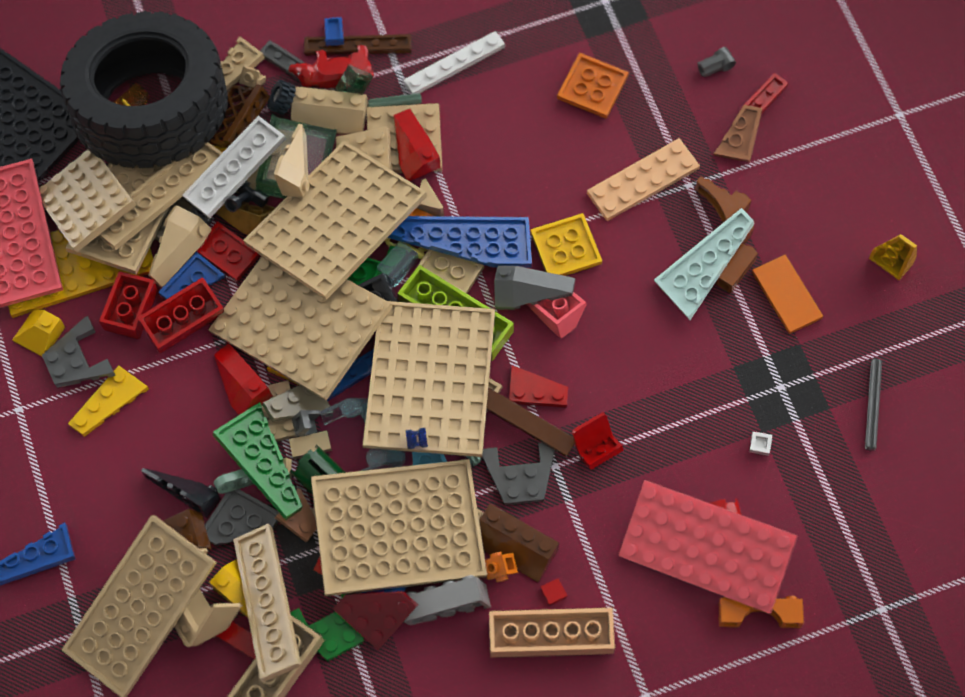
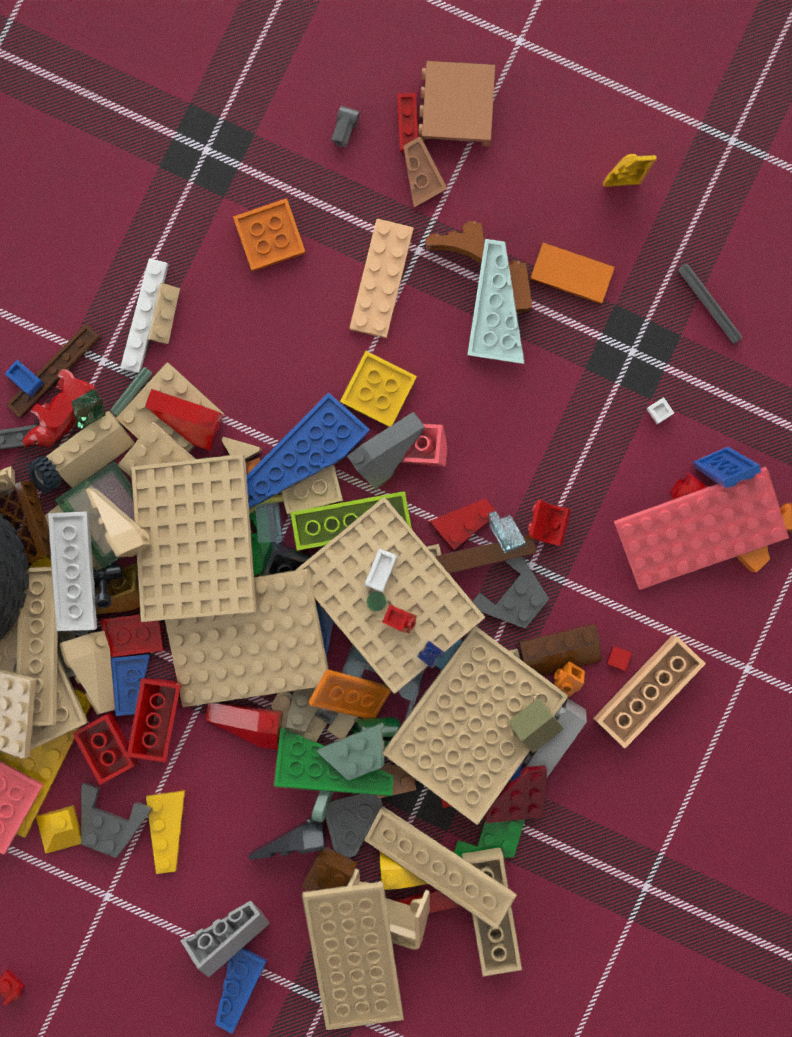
camera: 45 degrees left, 20 degrees up
(66, 509) = (224, 938): none -> light grey wedge
(293, 460) = (356, 753): none -> sand green wing
(331, 421) = (349, 695): none -> orange tile
(416, 369) = (376, 601): none -> clear green plate
(420, 396) = (399, 619): none -> red bracket
(440, 567) = (535, 725): none -> olive slope
(441, 353) = (380, 570): none -> white tile
(468, 72) = (163, 313): none -> tan plate
(559, 421) = (506, 532): none -> clear light blue panel
(777, 520) = (727, 467): none -> blue plate
(813, 113) = (457, 101): none -> nougat panel

